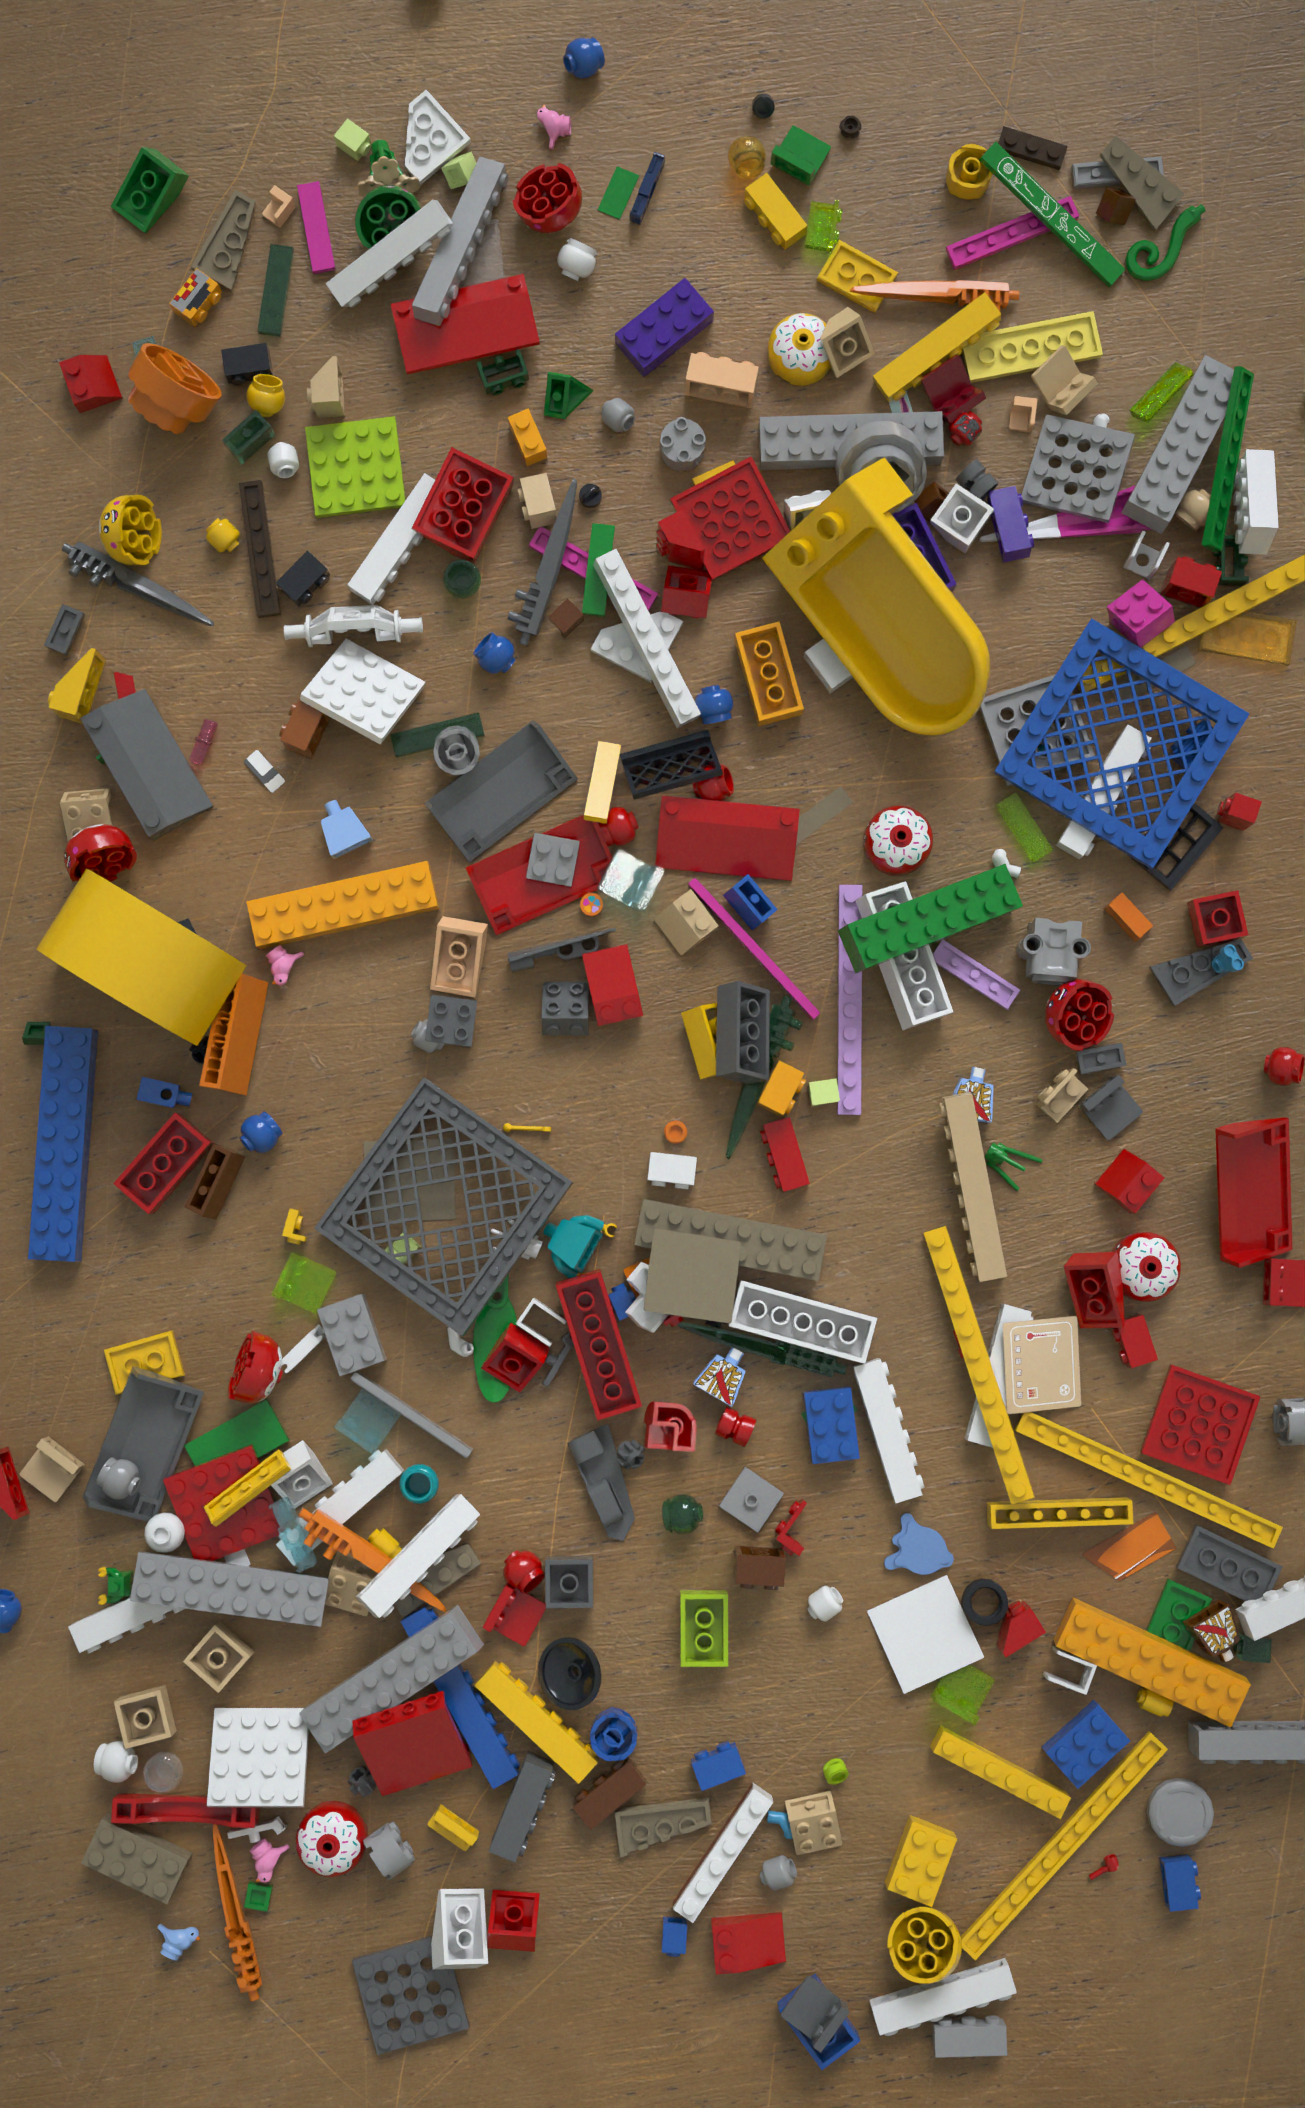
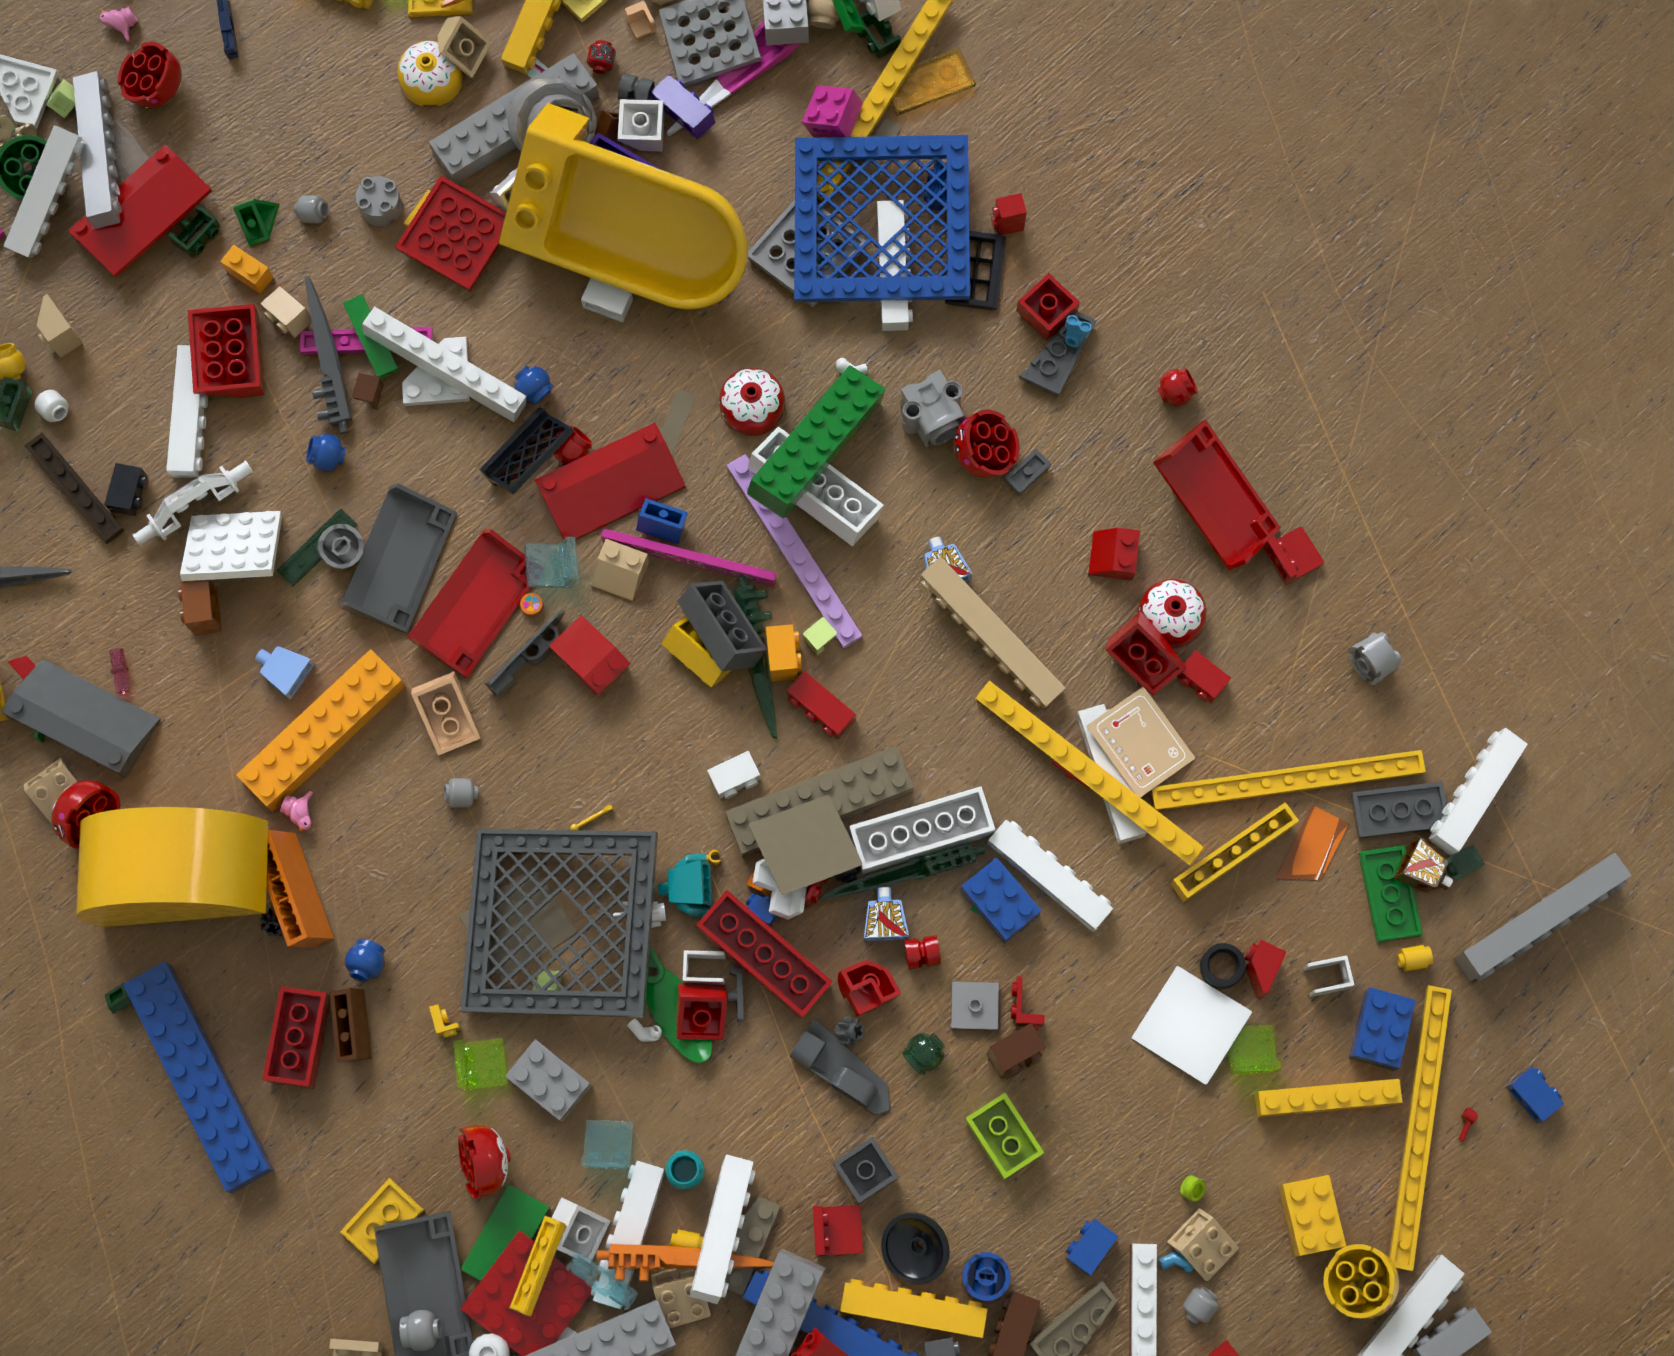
camera: 30 degrees left, 10 degrees down
(151, 1092) = (249, 980): blue torso -> none
(222, 535) = (36, 495): yellow head -> none
(264, 771) = (187, 664): white sticker -> none
(308, 1343) = (514, 1119): white piece -> none
(355, 467) = (116, 377): lime plate -> none
(411, 1414) = (642, 1116): light grey tile -> none
(451, 1021) = (472, 766): dark grey bracket -> none
(462, 579) = (260, 409): clear green piece -> none
(523, 1571) = (820, 1187): red piece -> none
(552, 859) = (476, 586): light grey plate -> none
(565, 1008) = (562, 701): dark grey bracket -> none
(576, 259) = (202, 110): white piece -> none
(590, 495) = (327, 285): black tile -> none
(602, 782) = (478, 499): yellow tile -> none
(618, 192) = (205, 43): green sticker -> none
(619, 827) = (514, 526): red piece -> none
(664, 327) = (307, 121): dark purple brick -> none
(675, 1132) = (718, 744): orange tile -> none
(679, 541) = (424, 273): red slope -> none
(686, 592) = (454, 312): red slope -> none
(721, 380) = (379, 132): light nougat brick -> none
(768, 673) = (562, 334): light orange brick -> none
(825, 1603) = (1092, 1051): white head -> none
(919, 1548) = (1140, 956): medium blue tile -> none
(951, 390) = (570, 34): dark red bracket -> none
(975, 974) = (883, 468): lavender plate -> none
(996, 1155) = (994, 598): green plant -> none
(1024, 827) = (847, 331): clear neon green plate -> none
(1061, 1097) = (1015, 521): tan bracket -> none
(1111, 1108) = (1061, 505): dark grey bracket -> none
(1128, 917) = (976, 350): orange panel -> none
(1151, 1662) = (1390, 925): light orange brick -> none
(1155, 558) = (815, 66): white piece -> none
(1180, 1812) = (1496, 1035): light grey piece -> none
(1191, 582) = (856, 65): red brick -> none
(1200, 1424) = (1300, 710): red plate -> none

